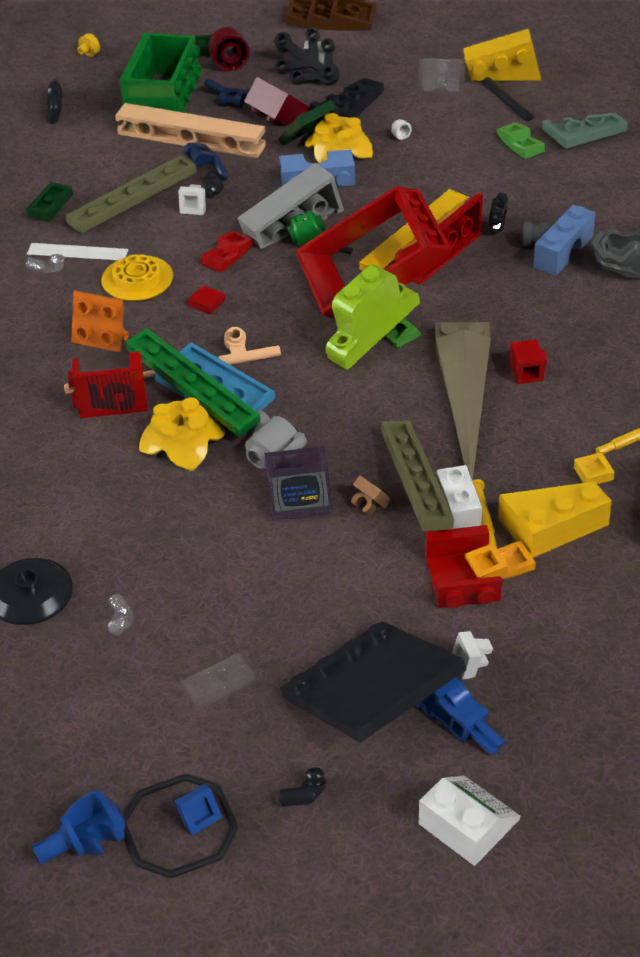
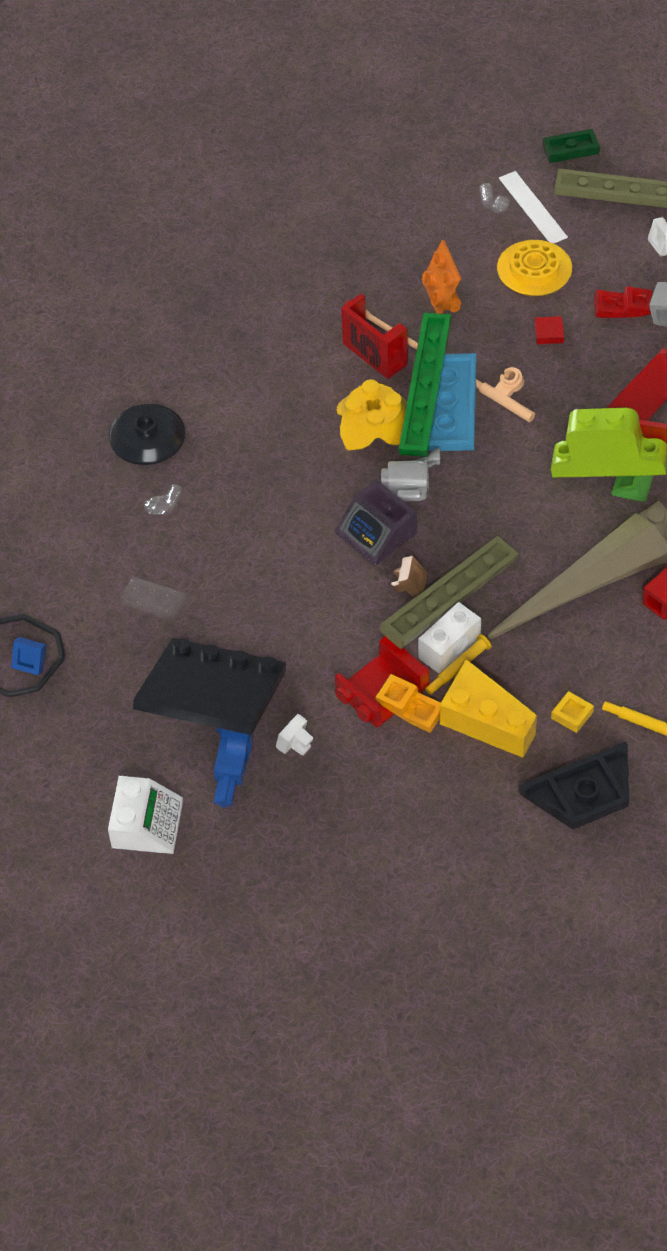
camera: 55 degrees right, 10 degrees up
(307, 792) = (92, 711): black arm -> none

